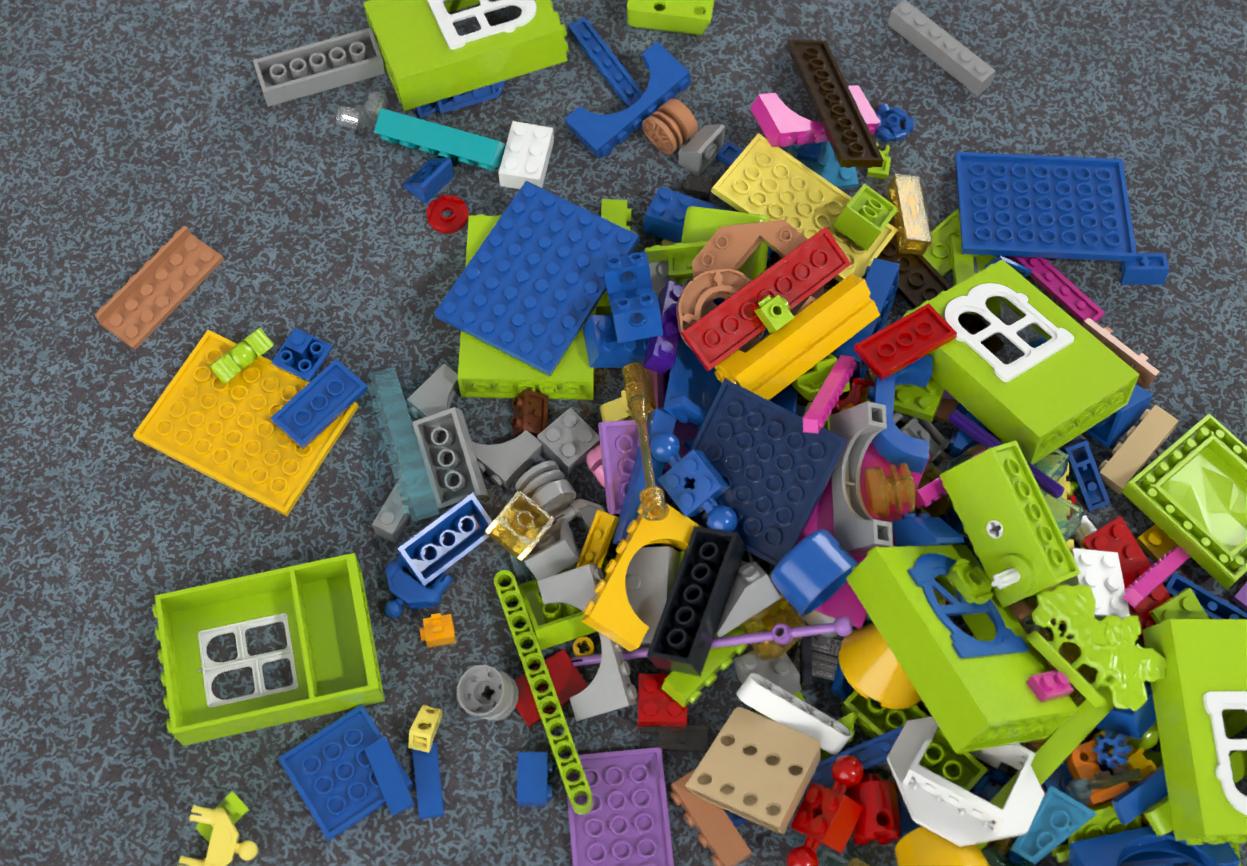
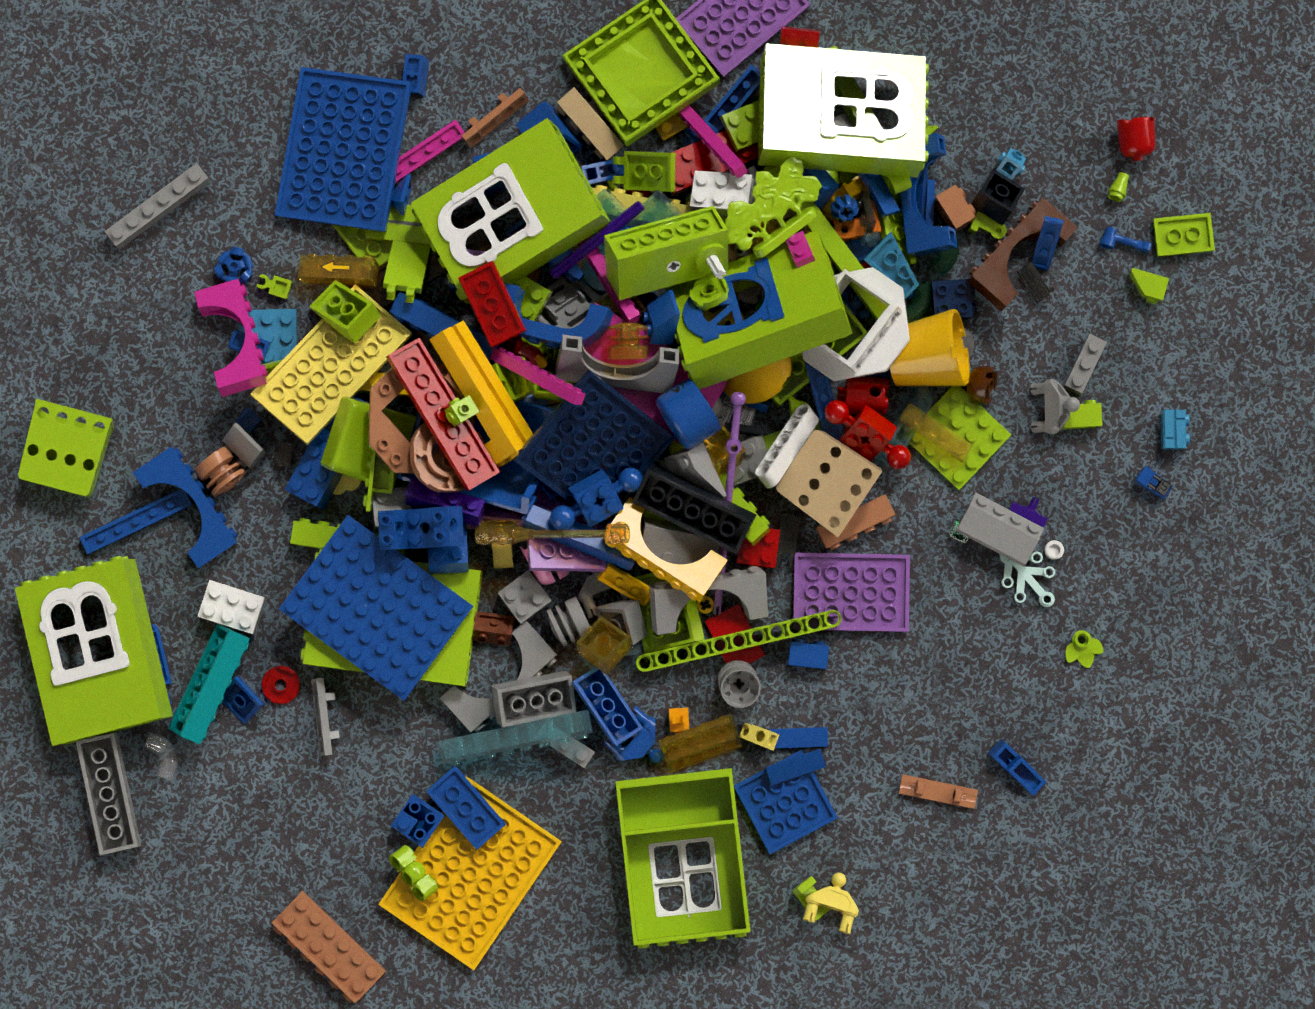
camera: 85 degrees left, 20 degrees up
(412, 658) = (700, 743): none -> clear yellow brick
(434, 249) = (321, 715): none -> light grey hinge
(834, 104) = (221, 320): dark brown plate -> none
(922, 269) = (406, 269): none -> lime tile
(1102, 507) = (647, 171): none -> lime tile

